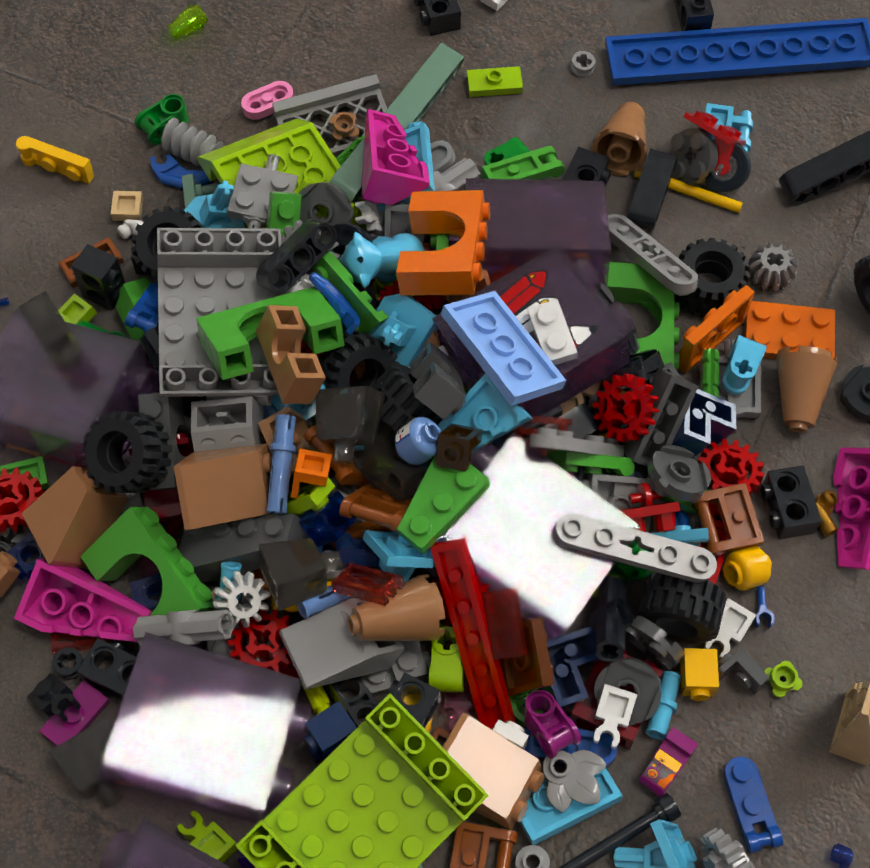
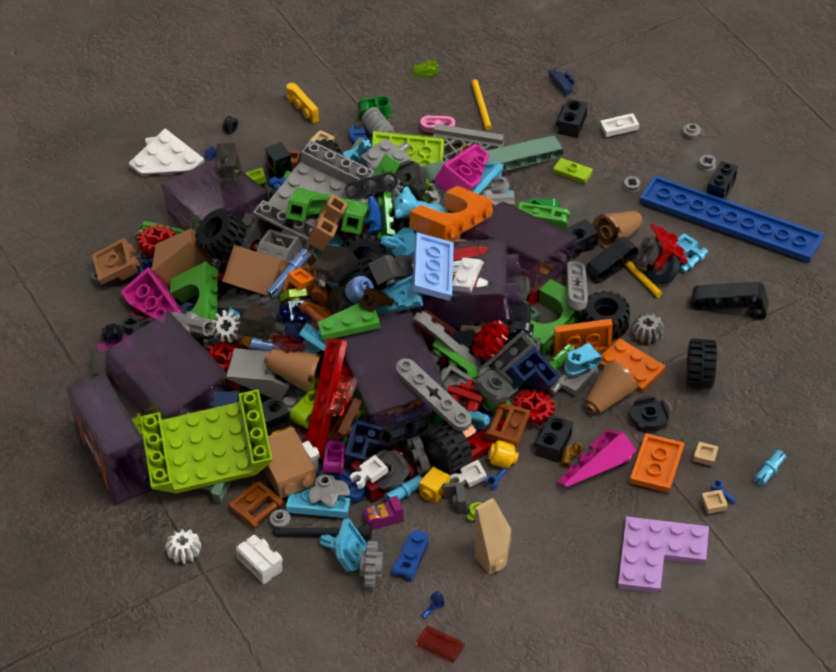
camera: 35 degrees right, 15 degrees down
(300, 41) = (486, 121): none -> yellow bar

